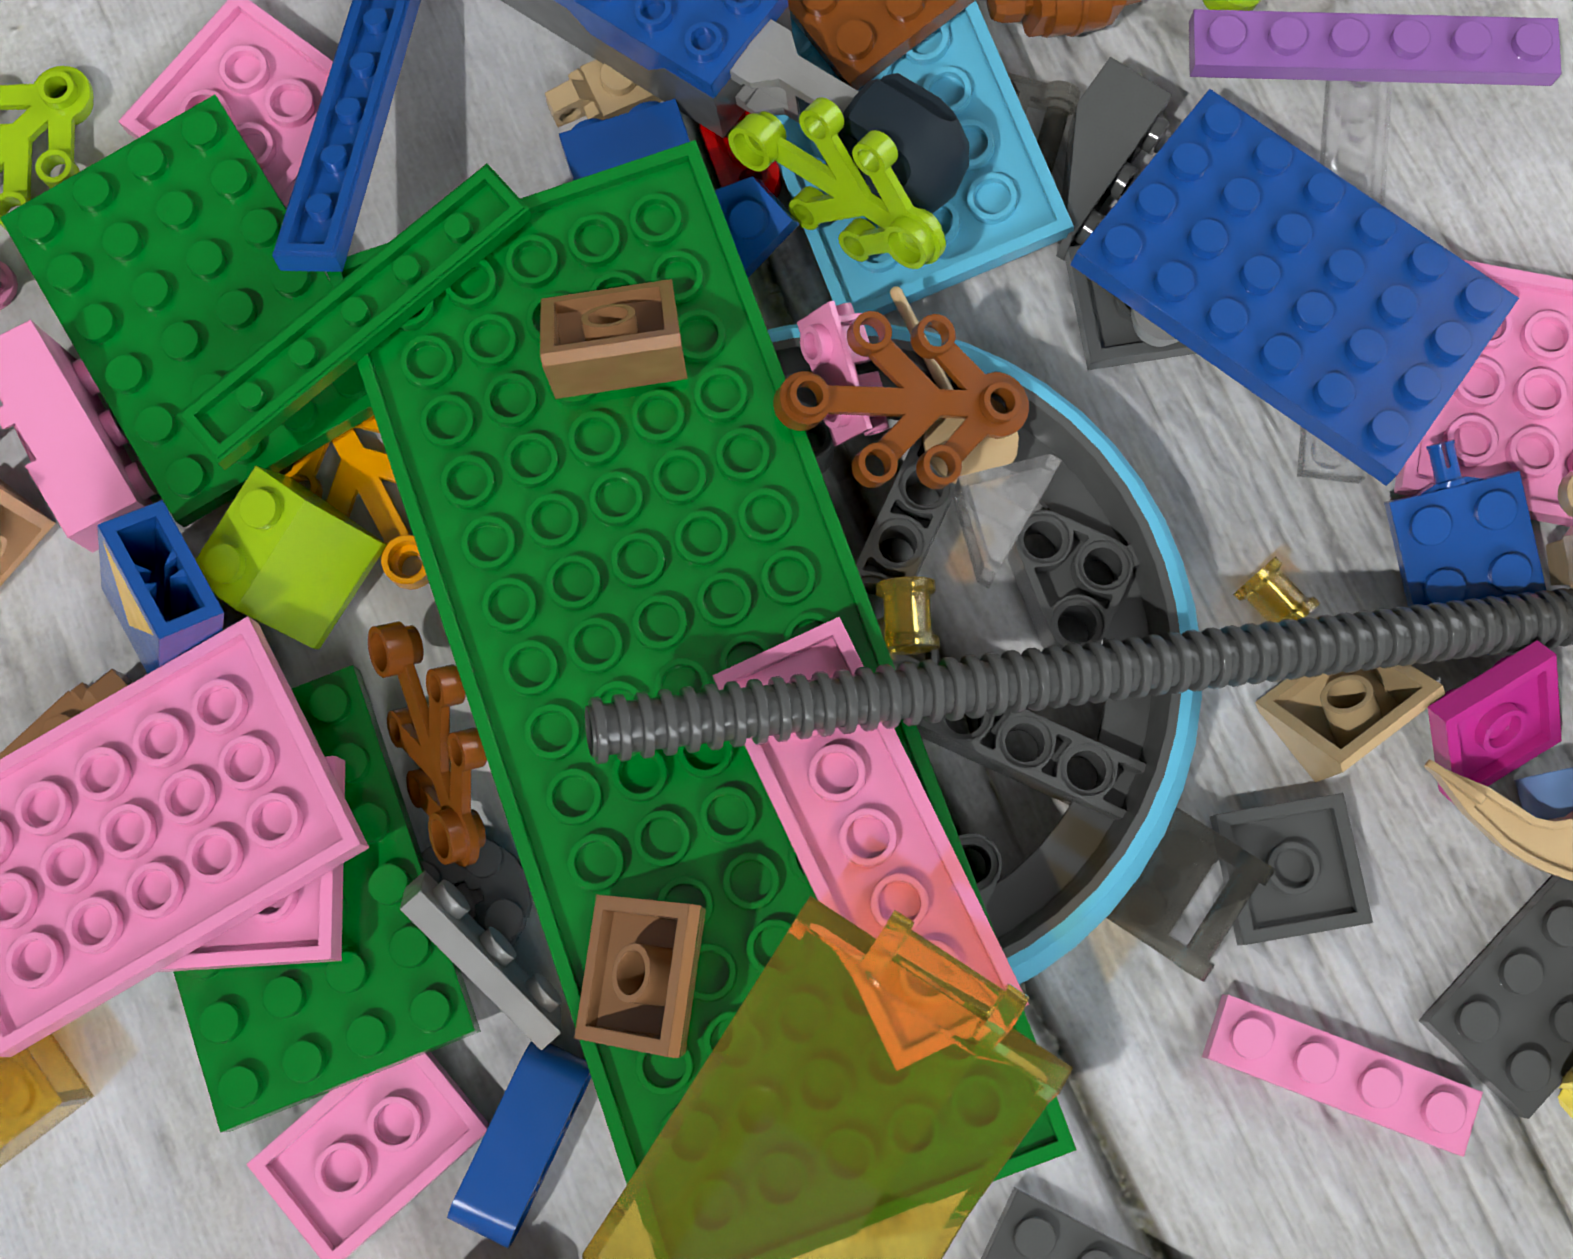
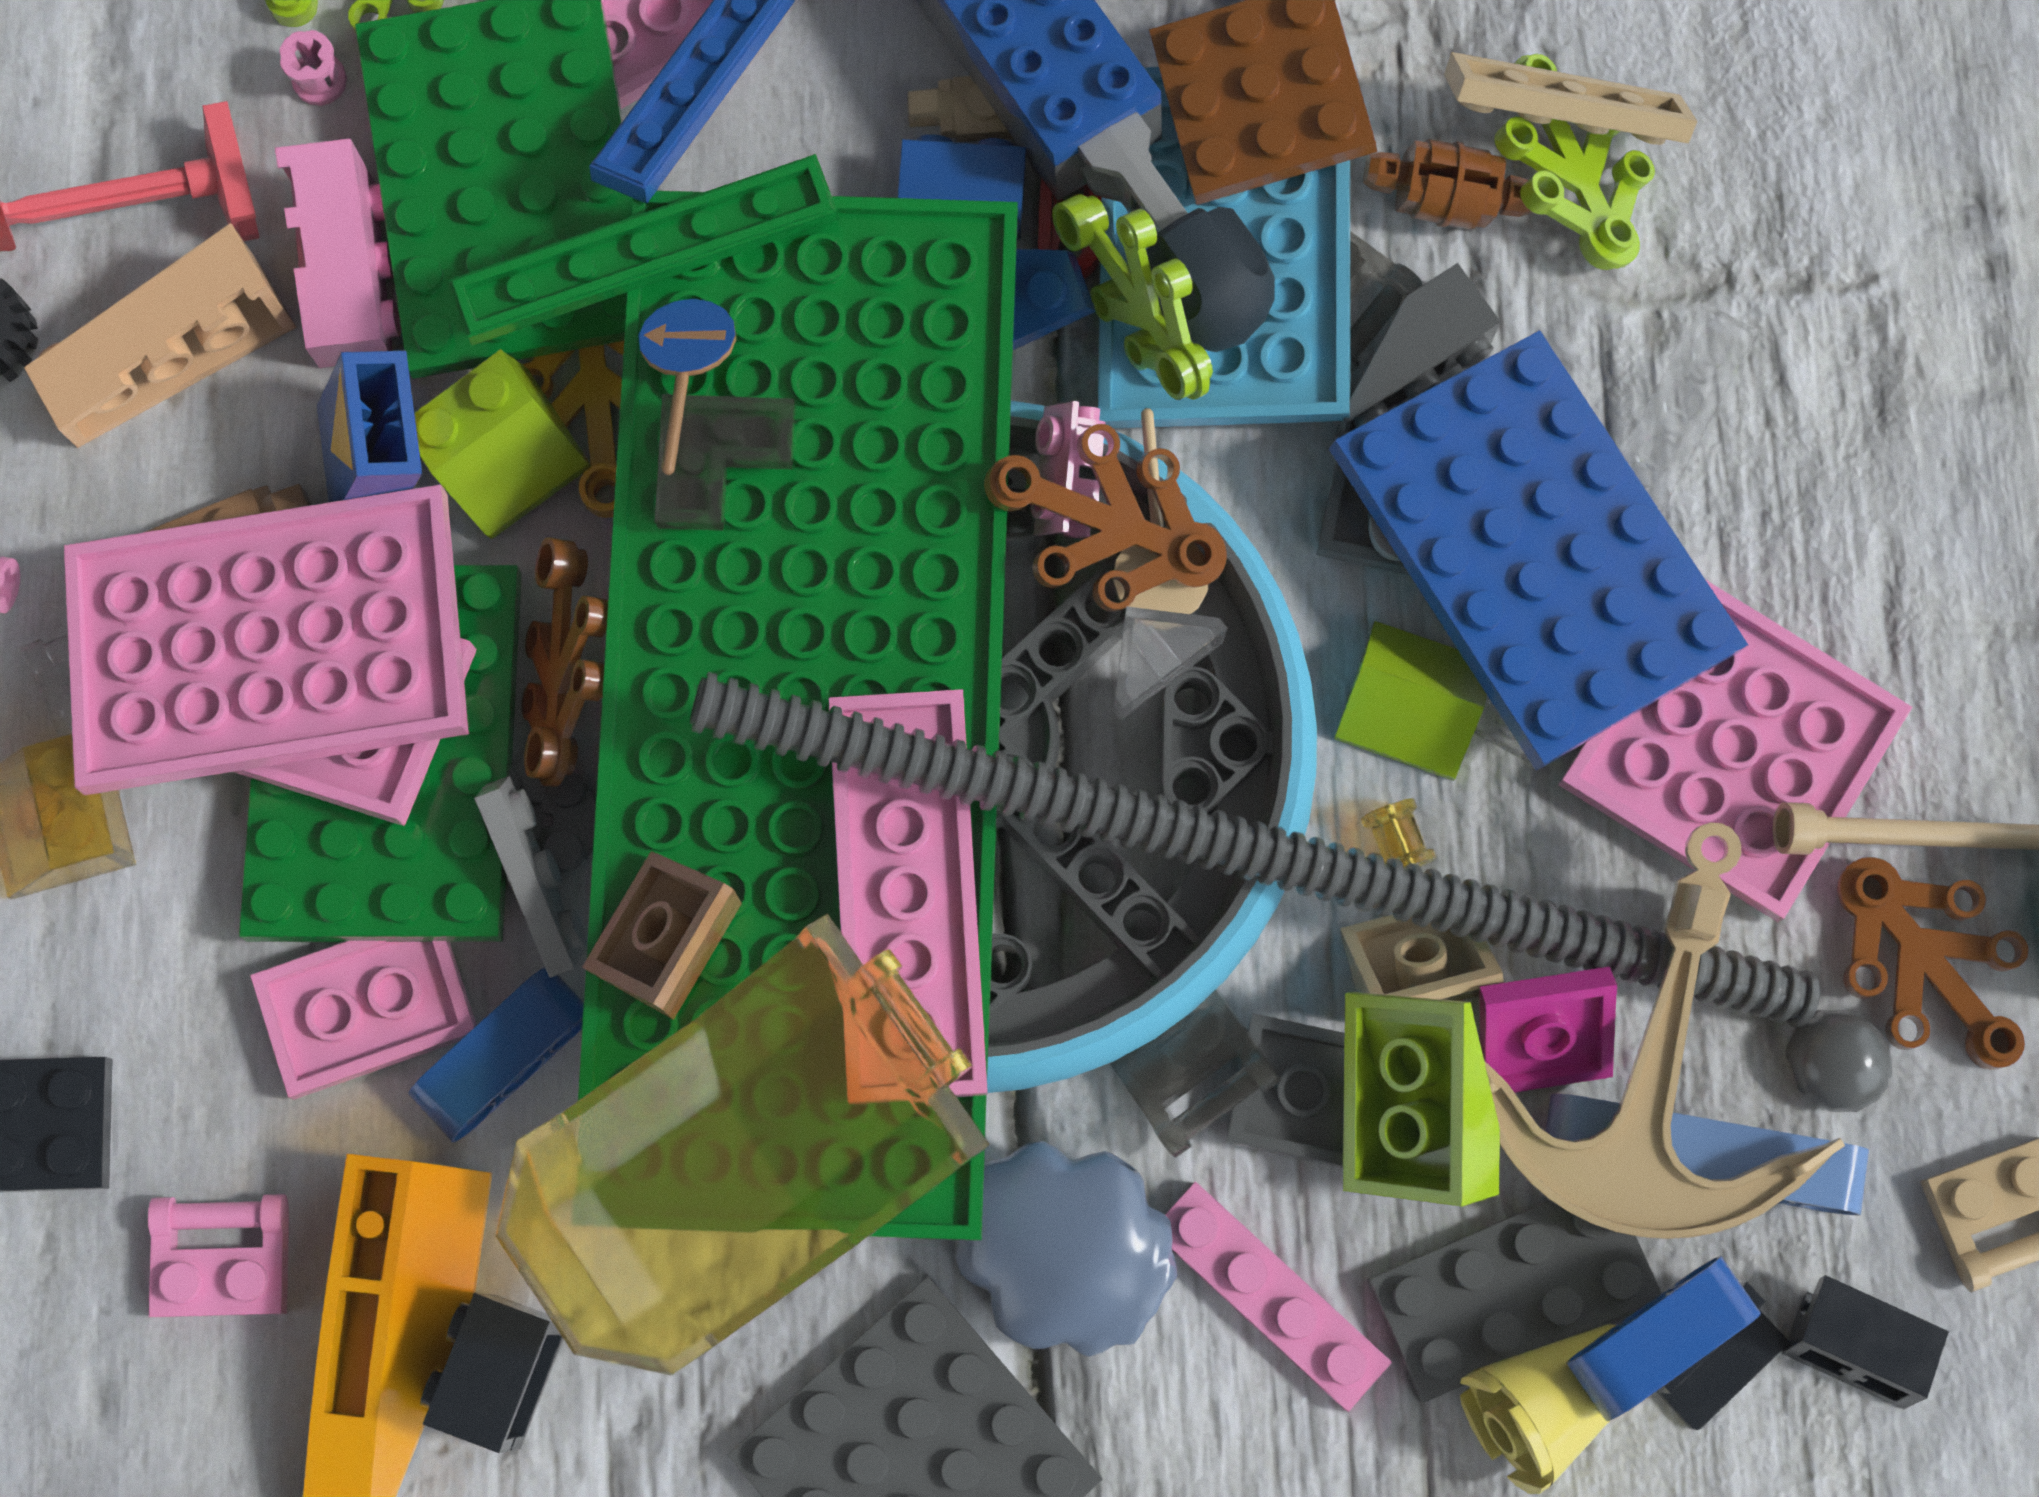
camera: 20 degrees right, 0 degrees up
(430, 388) = (684, 342): none -> blue piece
(490, 469) = (715, 436): none -> clear smoke plate
(611, 339) = (863, 359): medium nougat slope -> none
(908, 614) = (1032, 714): clear yellow bush -> none
(1152, 1113) = (1069, 1250): none -> sand blue piece
(1235, 468) = (1412, 702): none -> lime slope
(1374, 47) = (1721, 350): medium lavender plate -> none
(1418, 840) = (1417, 1102): none -> lime slope
(1464, 535) = (1598, 849): blue plate -> none

